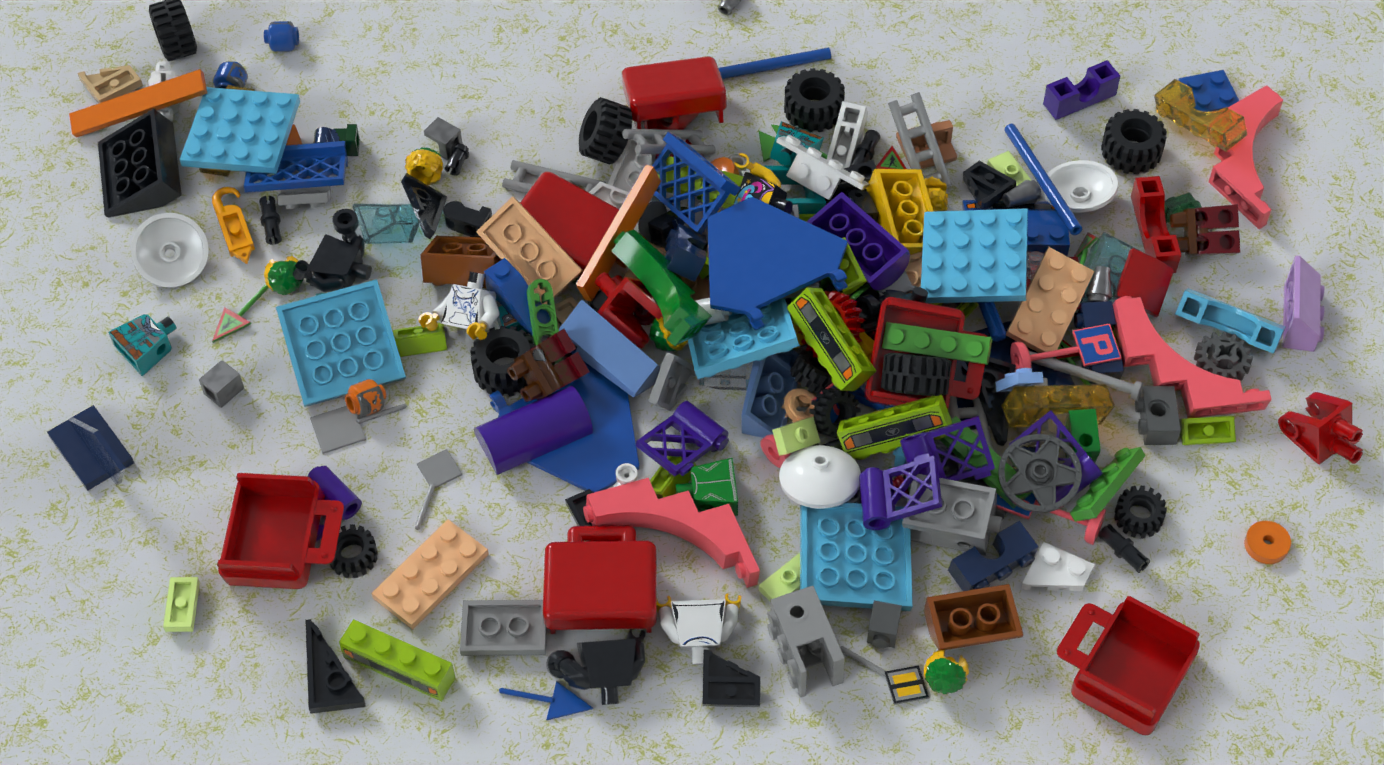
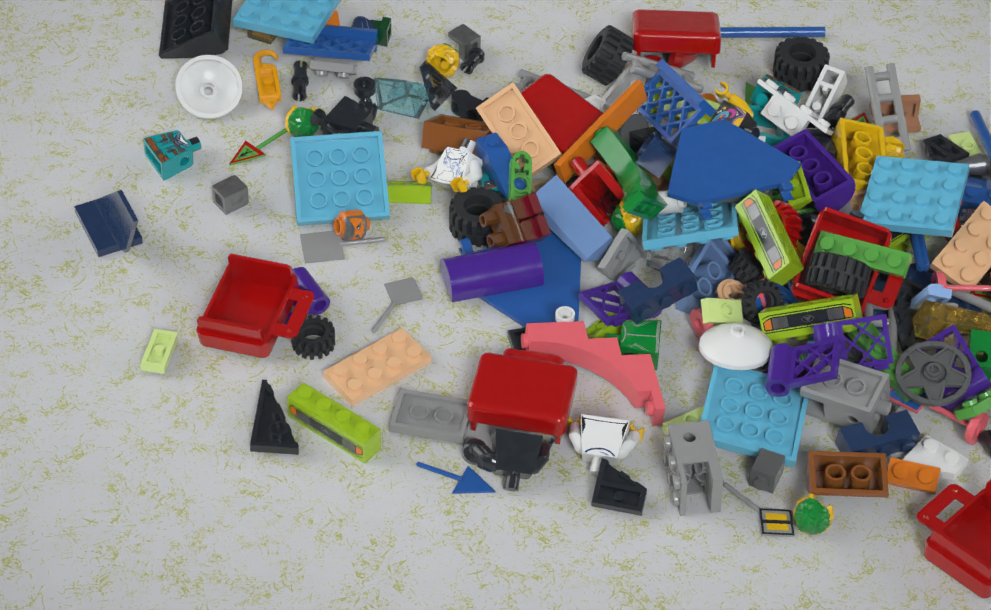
camera: 10 degrees right, 10 degrees down
(710, 443) = (644, 302): none -> dark blue arch
(1041, 597) = (913, 475): none -> orange plate

